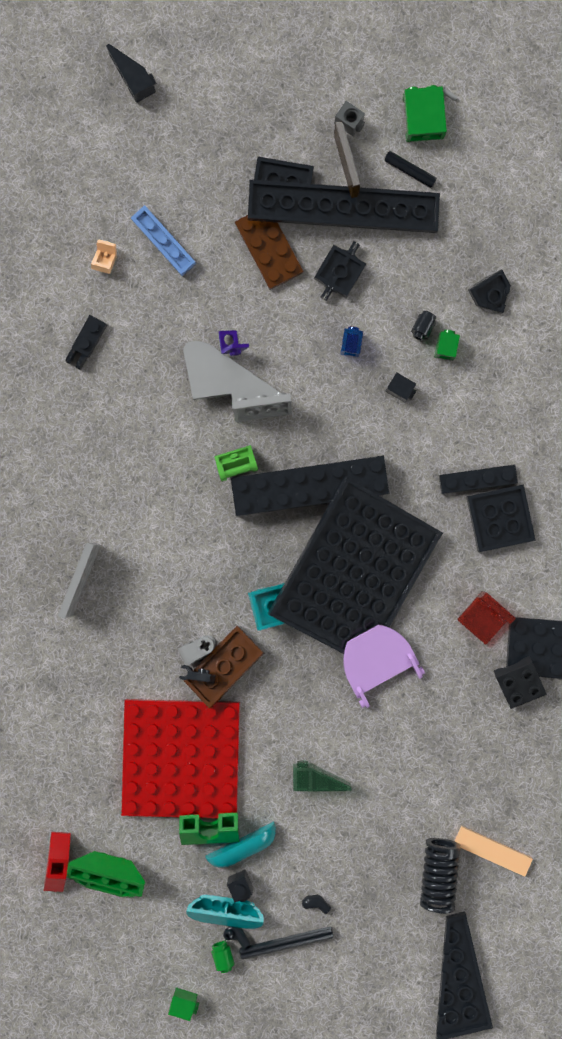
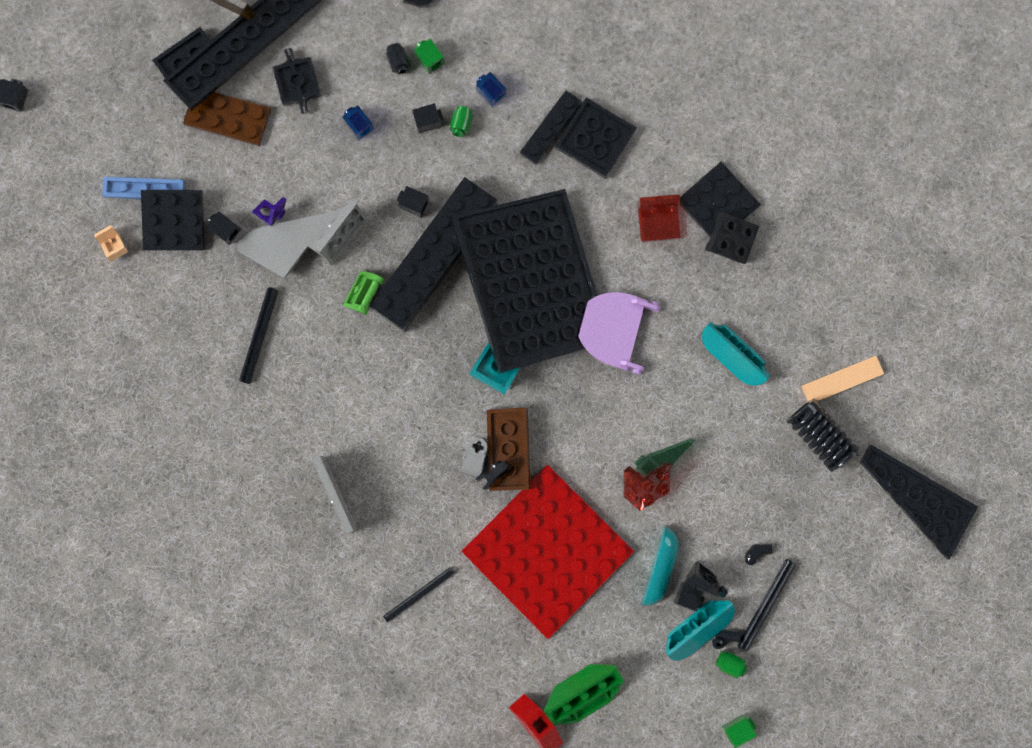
camera: 50 degrees left, 5 degrees down
(68, 698) = (418, 594): none -> black bar
(86, 340) = (160, 317): black hinge -> none
(139, 419) = (258, 335): none -> black axle
(160, 282) = (172, 219): none -> black plate
(188, 322) = (223, 227): none -> black brick
(195, 831) = (633, 569): green arch -> none
(262, 885) = (705, 580): none -> black plate
(281, 789) = (645, 490): none -> clear red bracket
(332, 434) = (413, 201): none -> black brick
(421, 413) = (461, 121): none -> green brick
(439, 761) = (735, 354): none -> teal brick
(465, 411) = (490, 88): none -> clear blue brick

